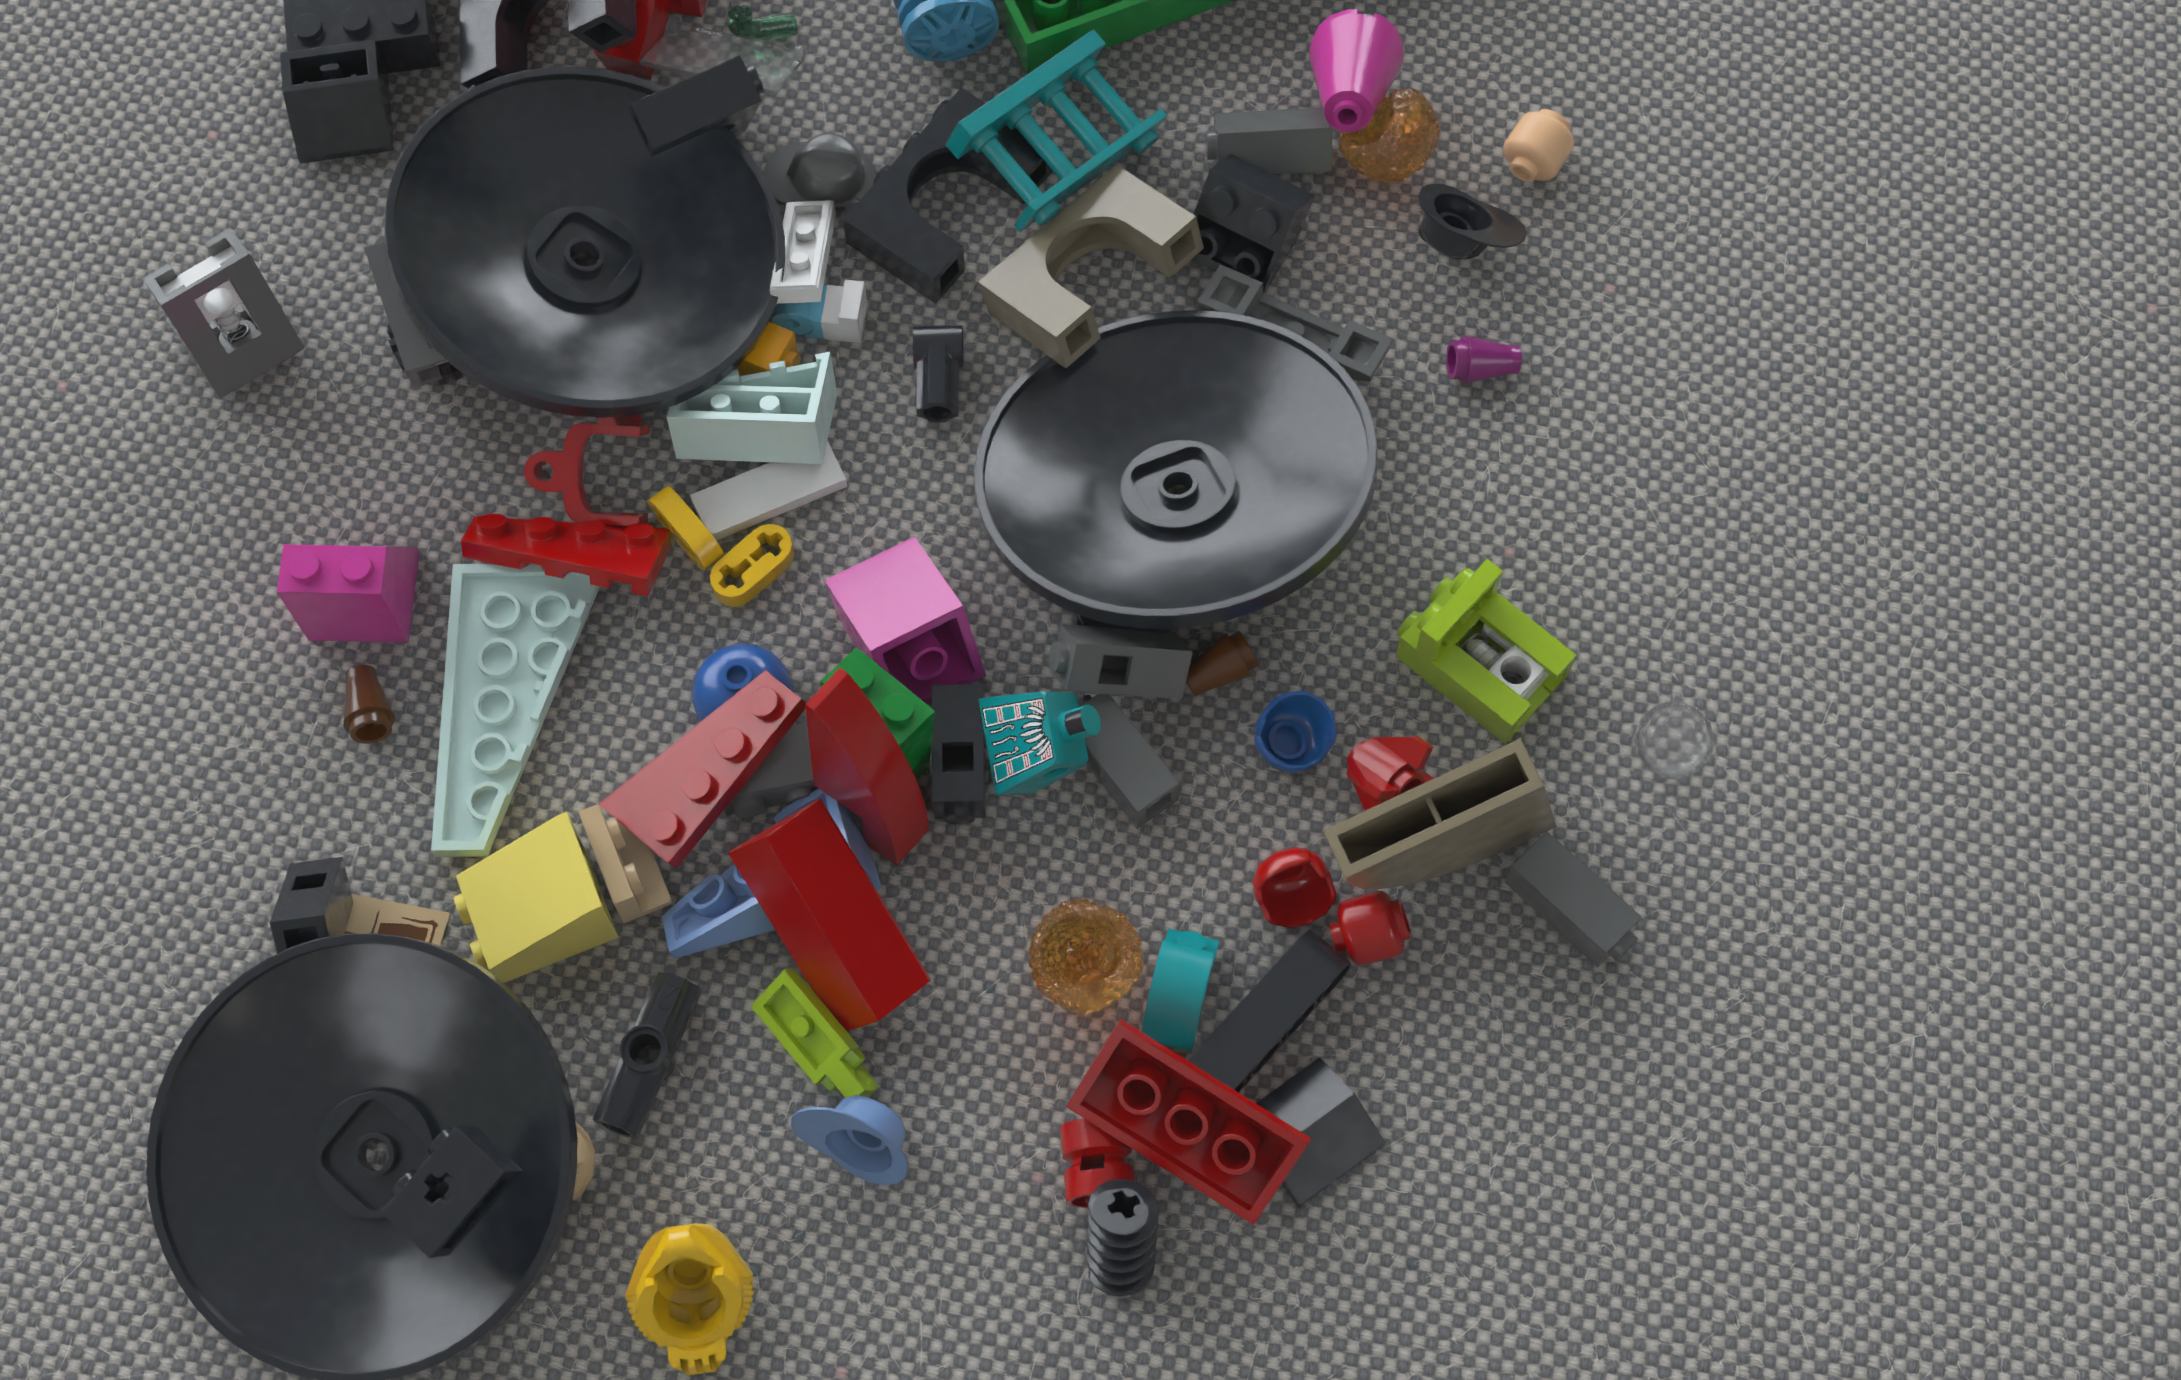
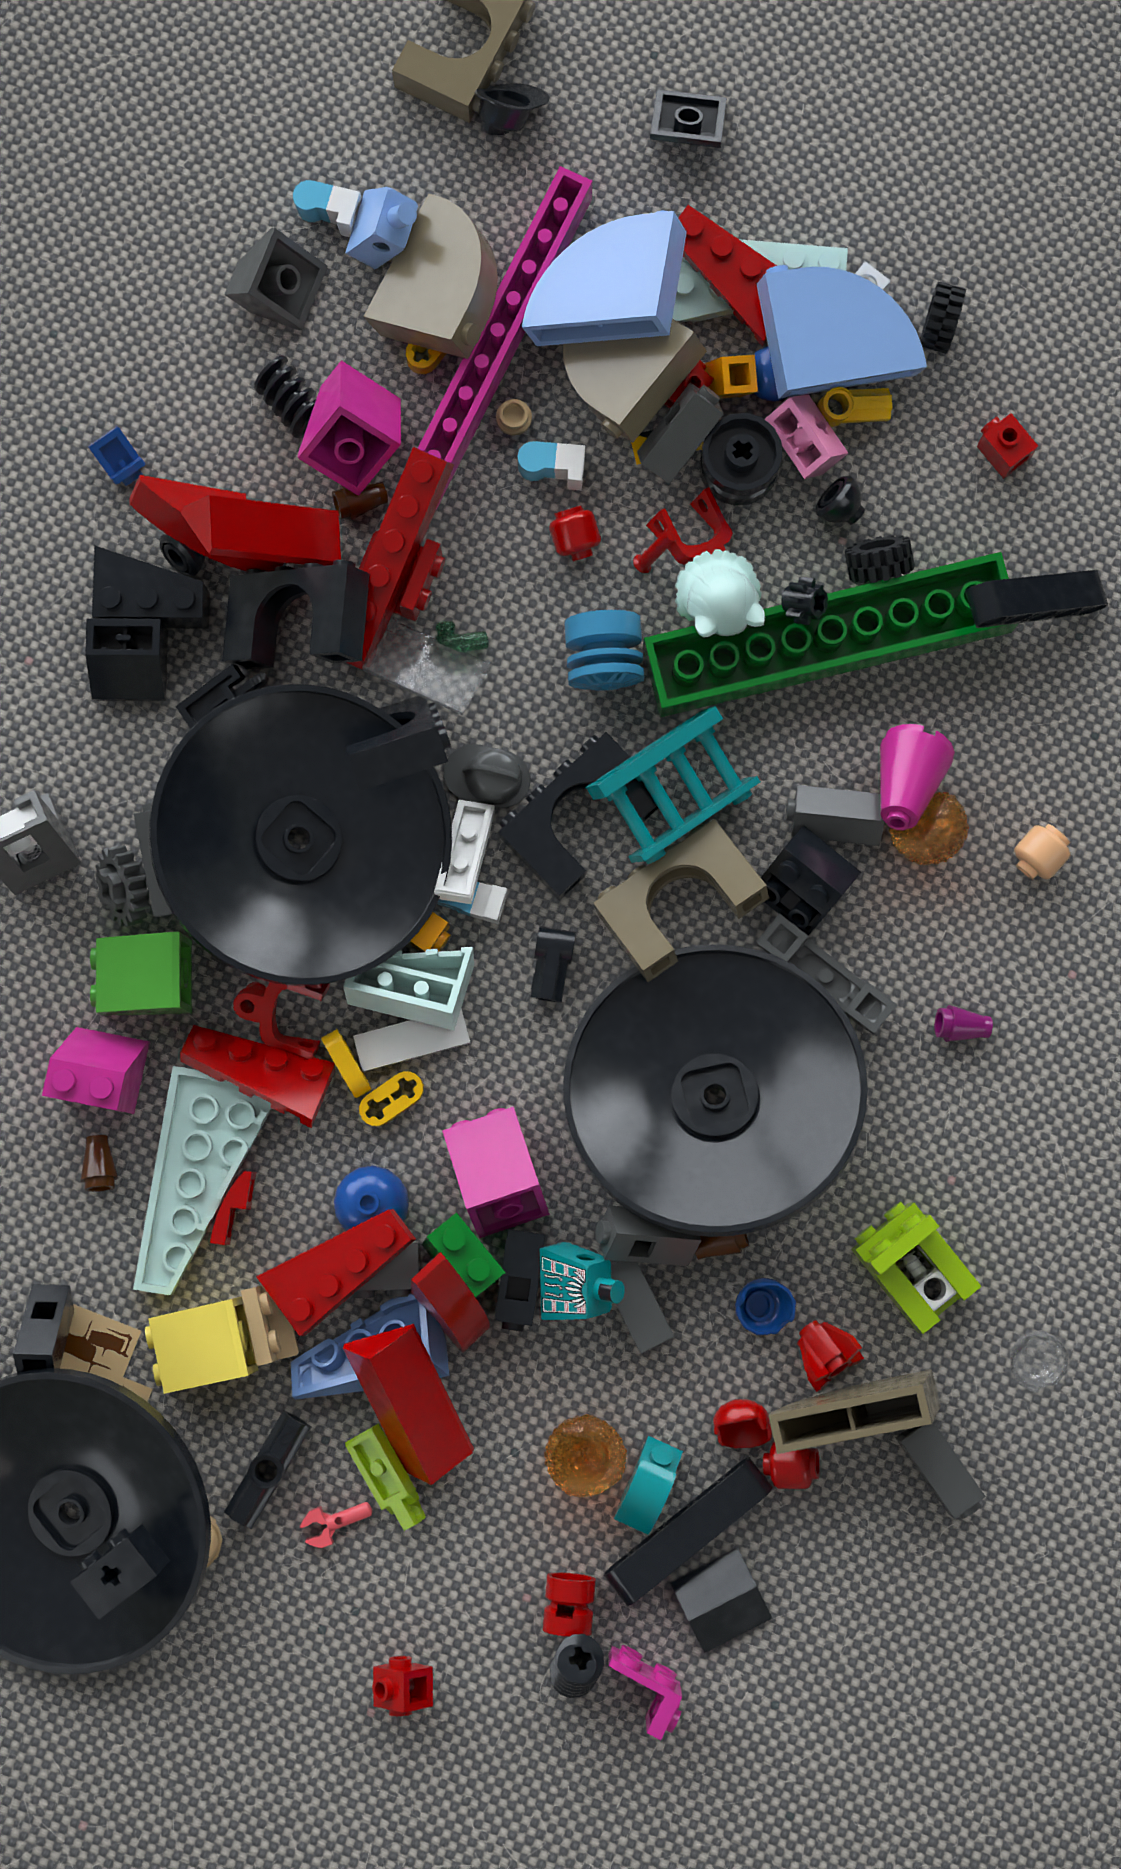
camera: 10 degrees right, 15 degrees up
(360, 353) = (122, 886): none -> dark grey gear
(400, 458) = (142, 974): none -> bright green slope
(559, 717) = (239, 1197): none -> red slope
(690, 1294) = (275, 1651): yellow helmet -> none
(749, 1117) = (333, 1522): none -> coral bar
(857, 1135) = (411, 1556): medium blue piece -> none
(880, 1312) = (402, 1686): none -> red brick
(1187, 1122) = (633, 1601): red slope -> none
(1241, 1235) = (664, 1709): none -> dark pink bracket
(1463, 225) = (973, 911): black piece -> none

